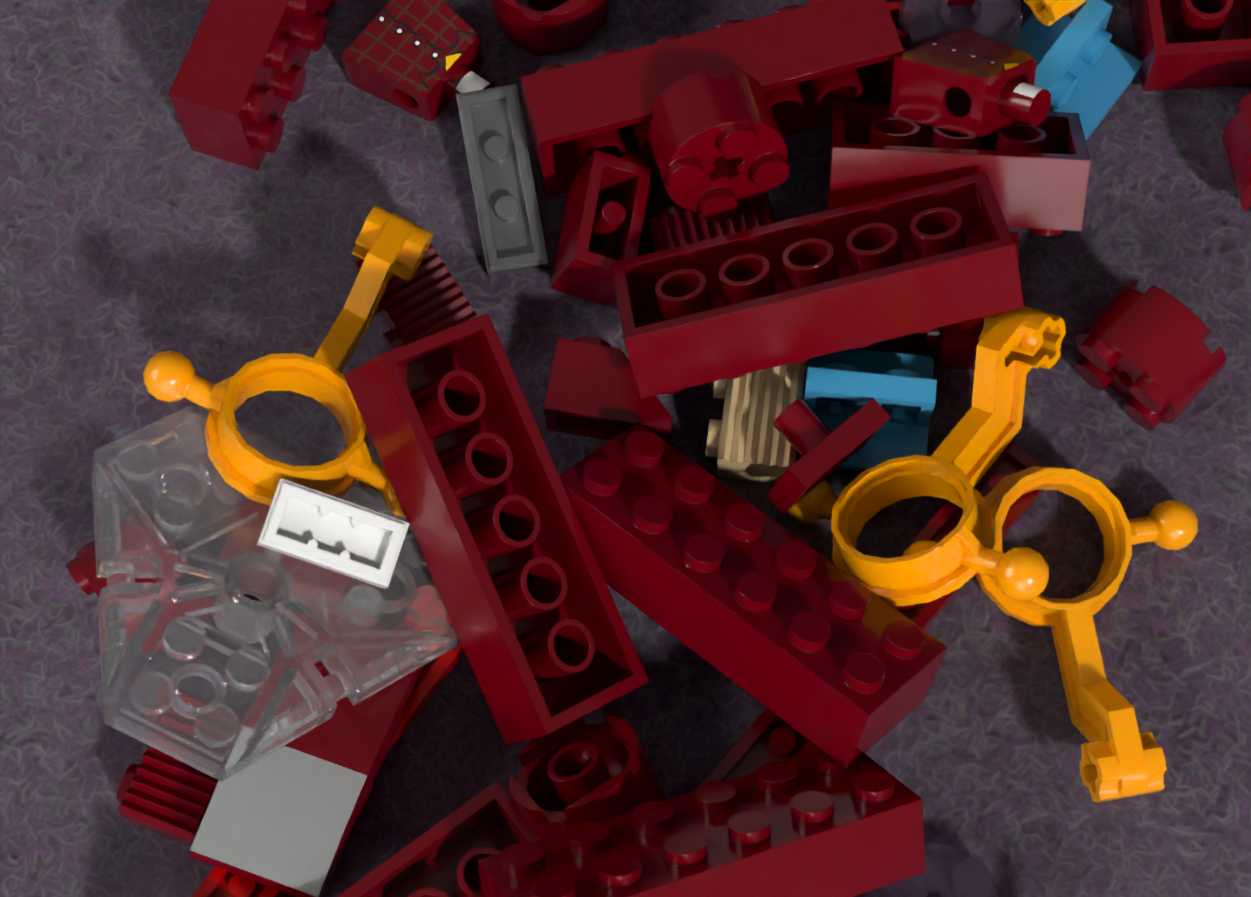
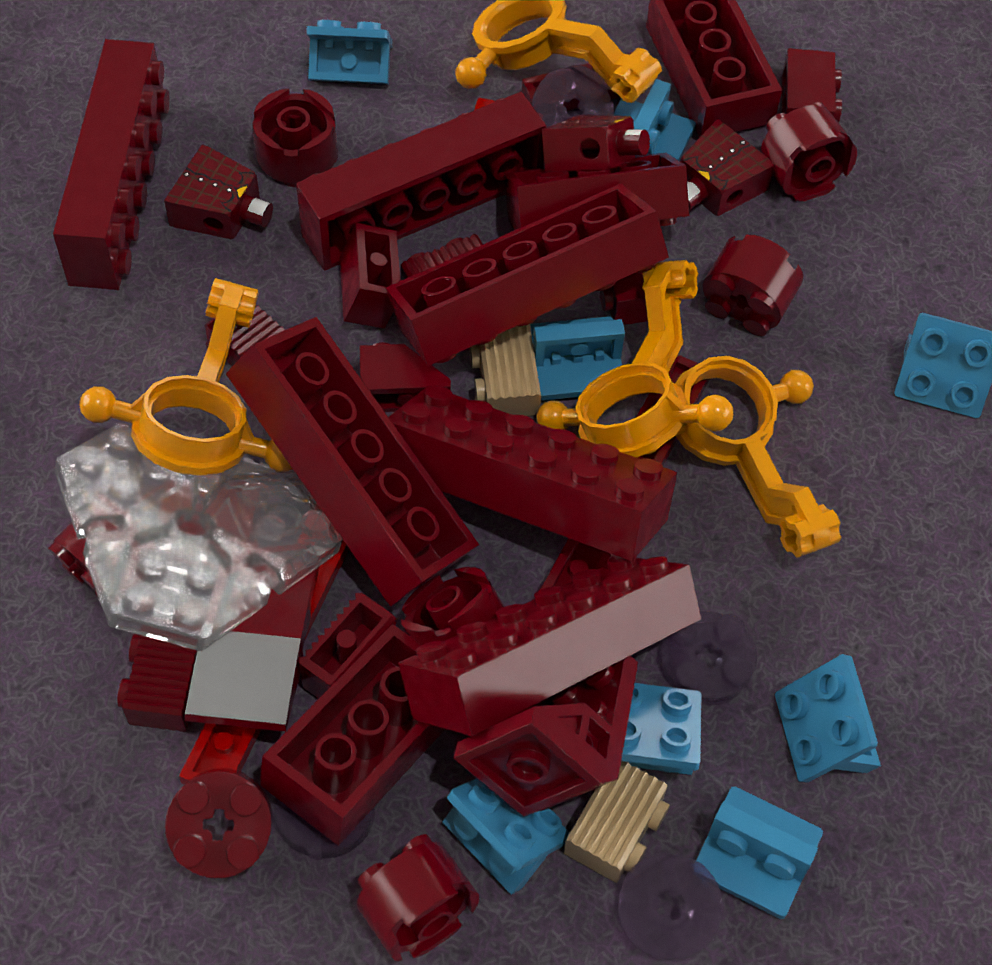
camera: 20 degrees left, 10 degrees down
(333, 533) = (240, 480): white plate -> none
(431, 789) = (343, 643): none -> dark red brick
(502, 180) = (293, 260): flat silver tile -> none
(716, 143) = (438, 201): dark red brick -> none
(820, 447) = (556, 377): dark red tile -> none
(1157, 154) = (725, 170): none -> dark red torso

